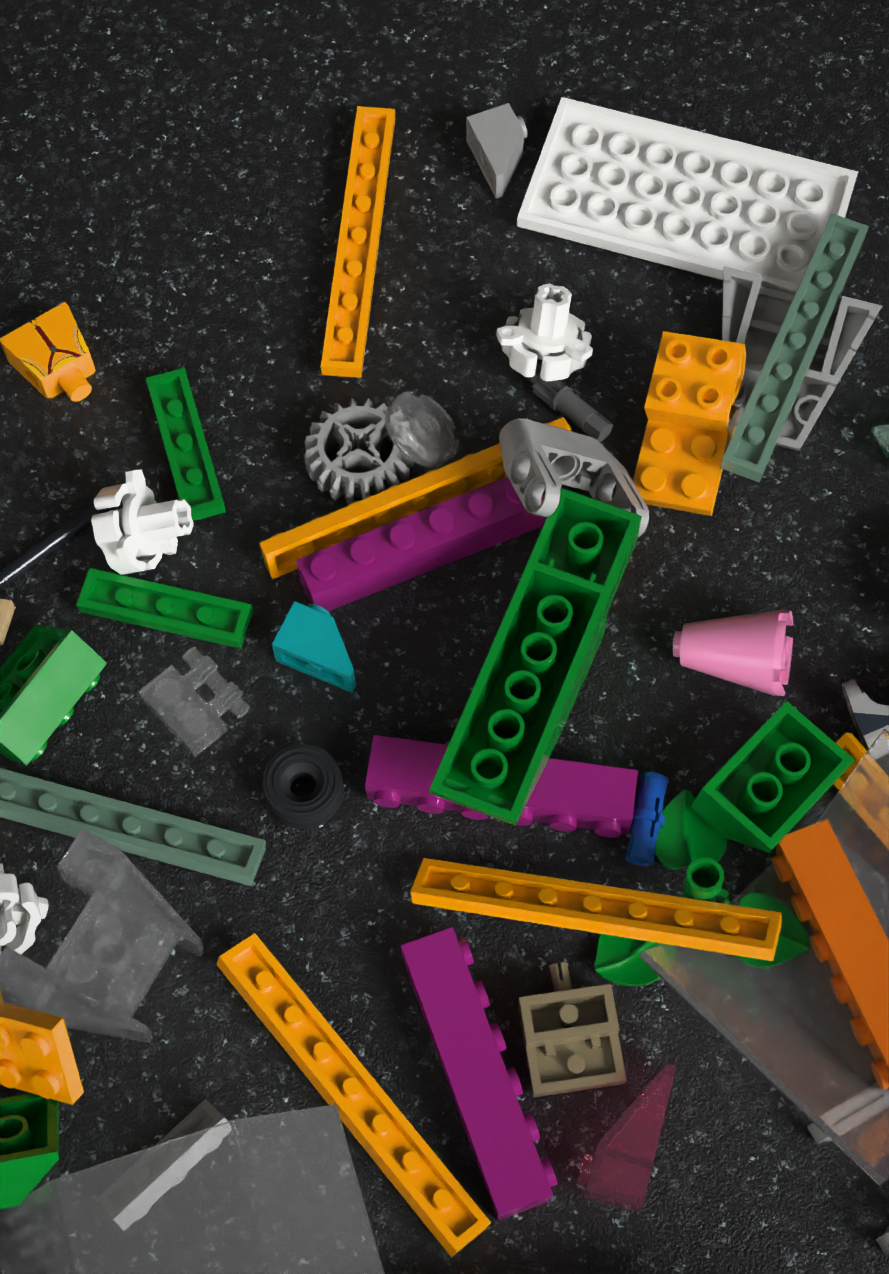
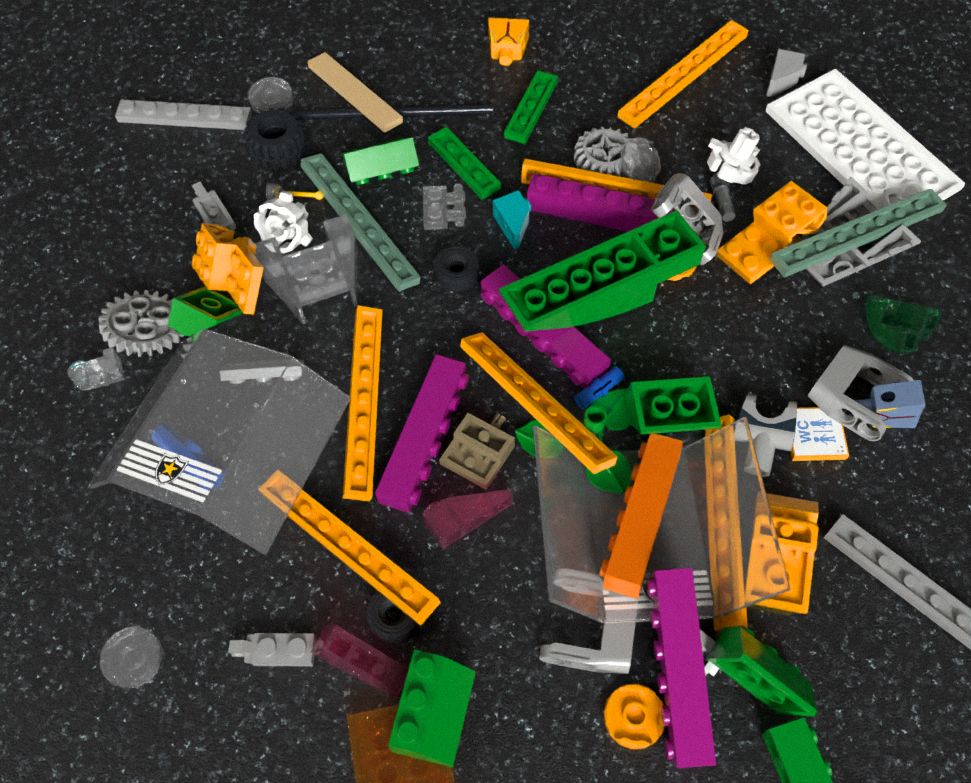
camera: 40 degrees right, 5 degrees down
(142, 529) = (481, 118): white piece -> none
(740, 649) = (712, 346): bright pink cone -> none

